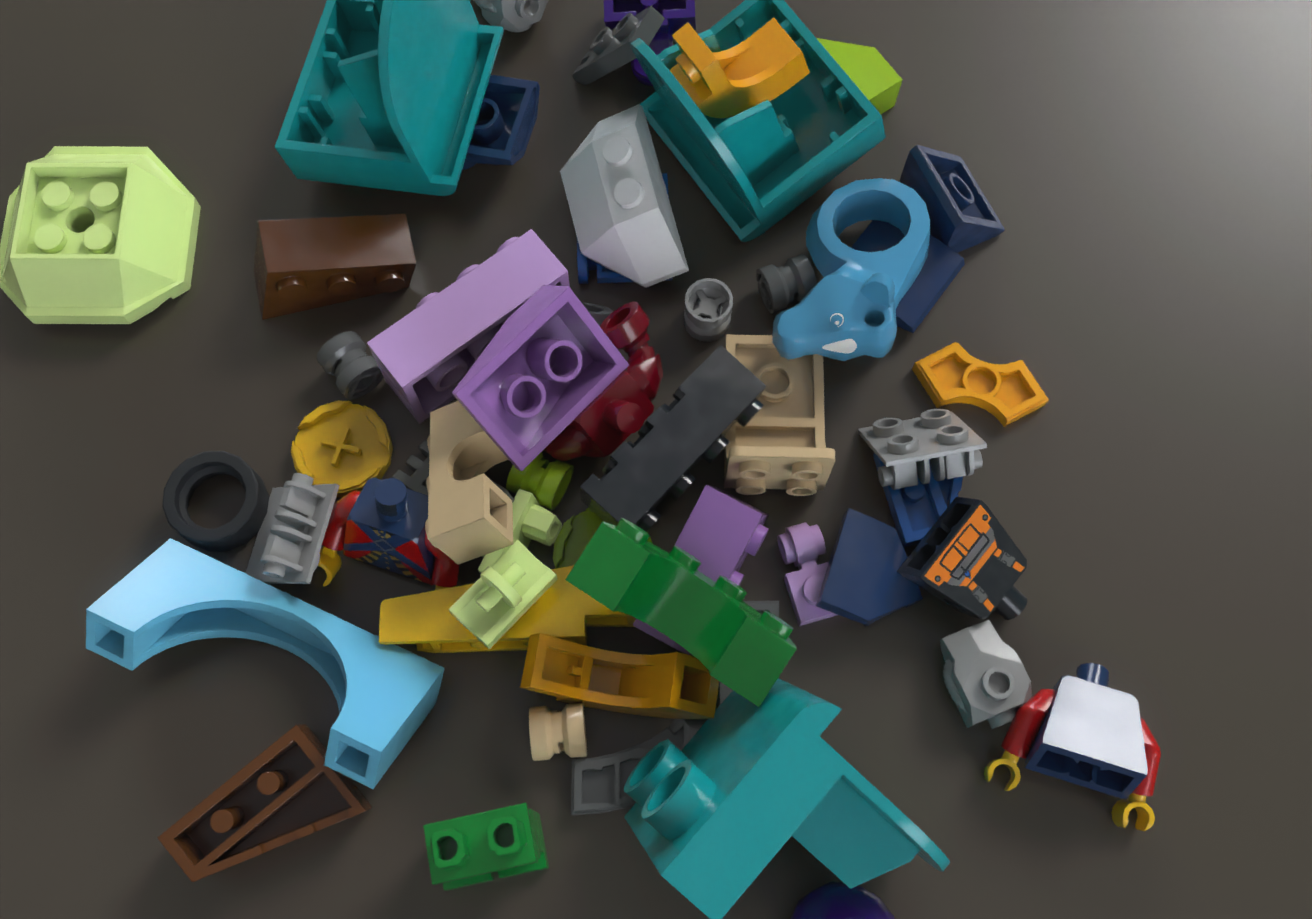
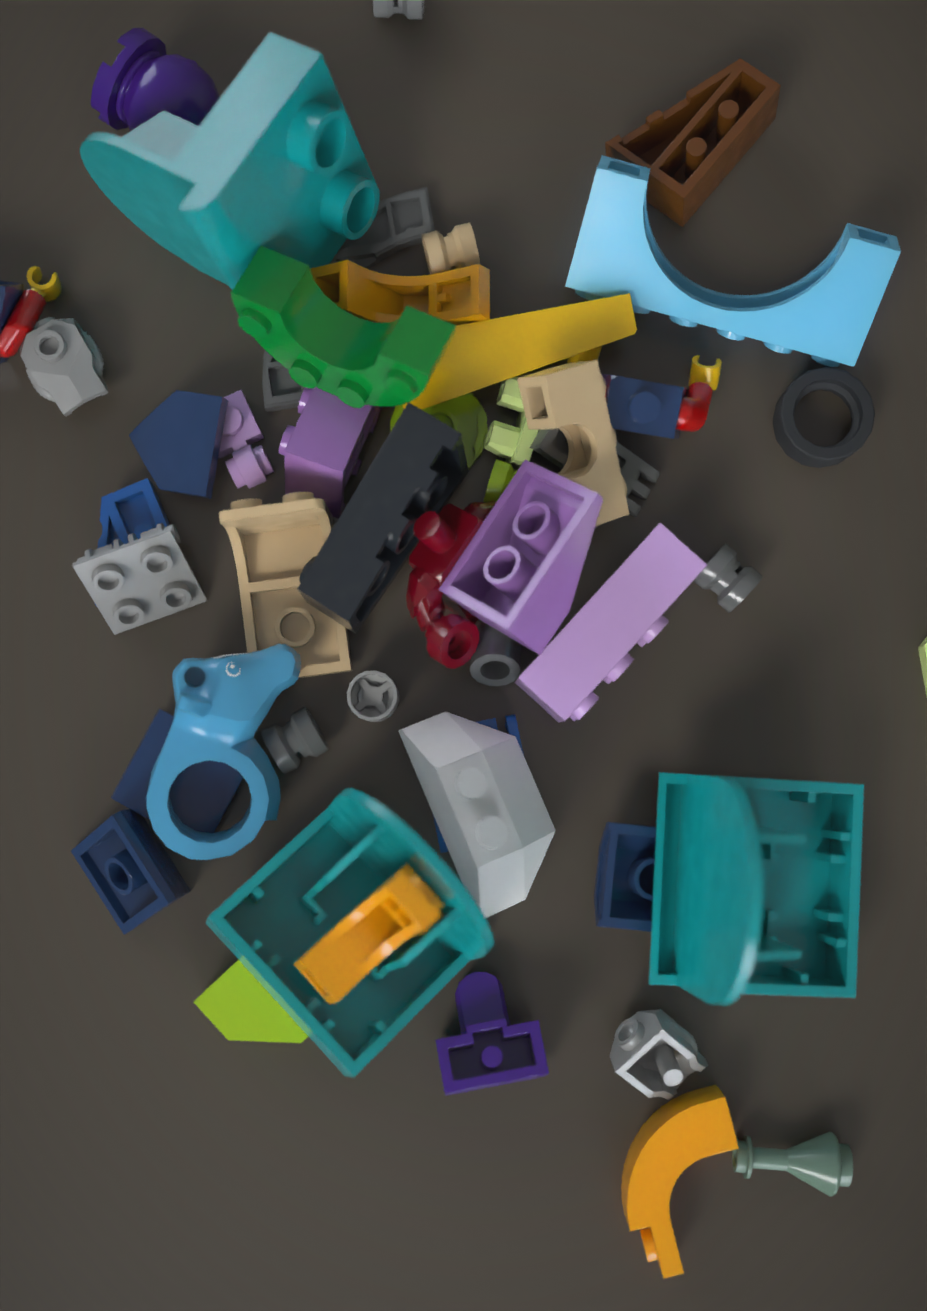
camera: 175 degrees right, 15 degrees up
(292, 532) = (740, 389): light grey hinge -> none
(330, 261) = (771, 683): reddish brown wedge -> none
(342, 446) = (716, 496): yellow tile -> none
(476, 845) = (492, 130): green hips -> none
(503, 594) = (518, 338): yellowish green hips -> none
(612, 47) = (514, 989): dark grey hinge -> none
(969, 562) = (88, 459): torso -> none
(1001, 389) = (112, 669): light orange tile -> none

